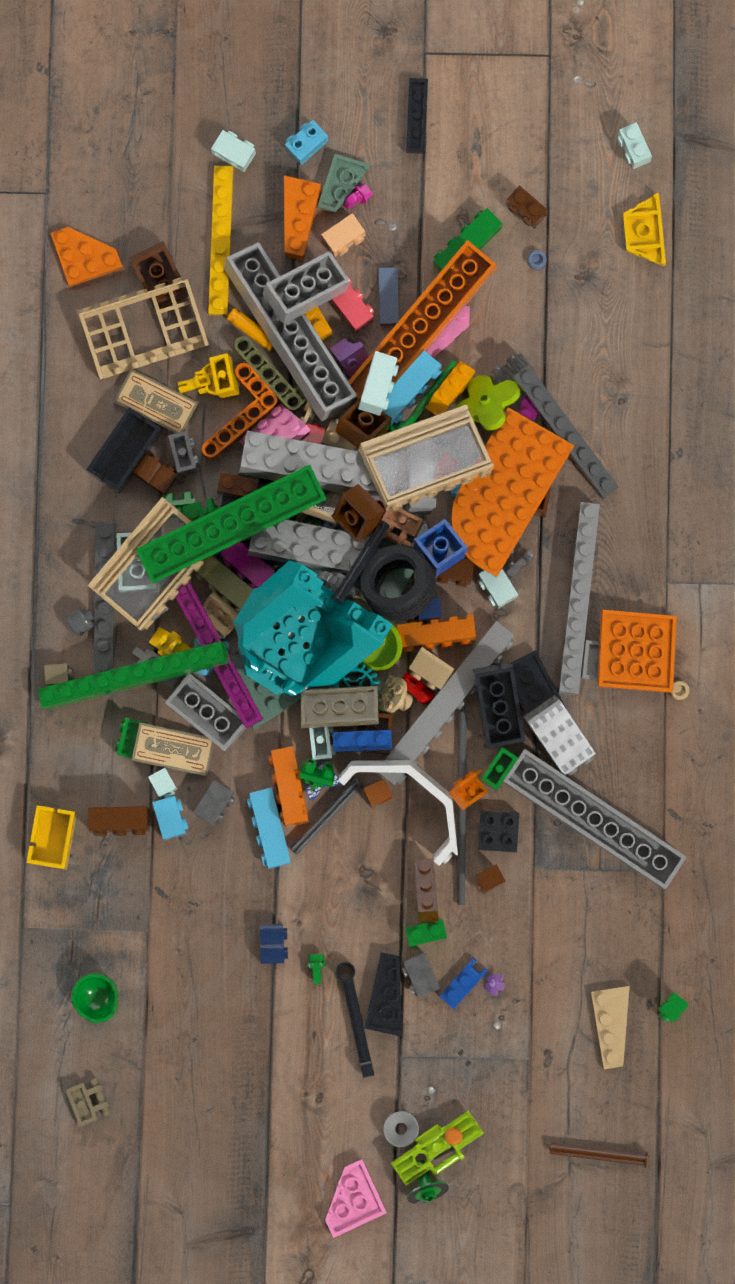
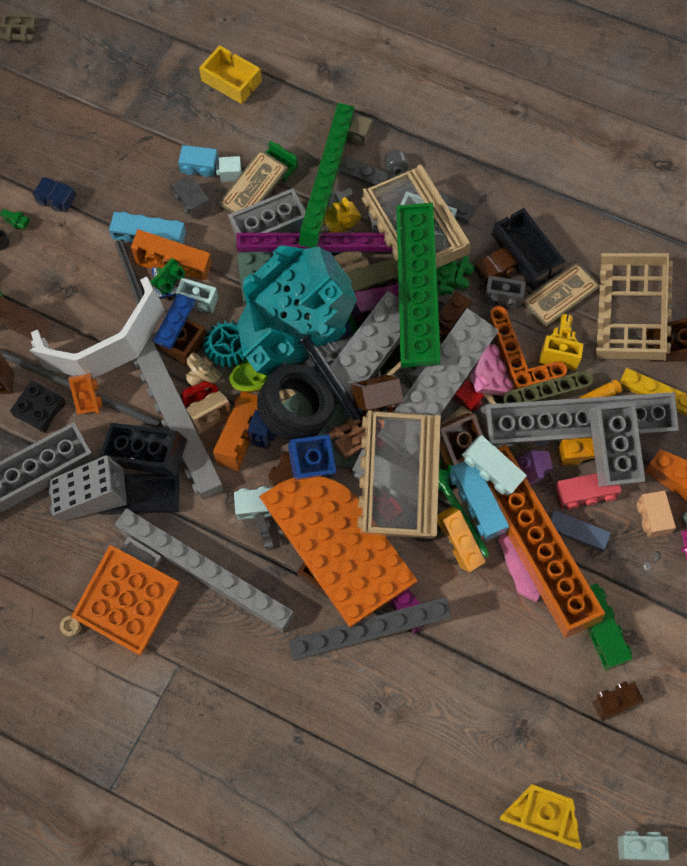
camera: 110 degrees right, 15 degrees down
(95, 997) = (88, 57): green cylinder -> none
(118, 820) = (217, 121): reddish brown piece -> none
(339, 707) = (214, 316): dark tan tile -> none
(378, 793) = (121, 312): dark orange panel -> none
(489, 401) = (432, 567): lime plant -> none
(499, 769) = (88, 427): green brick -> none
(513, 365) = (460, 616): flat silver brick -> none
(537, 260) = (558, 689): sand blue tile -> none

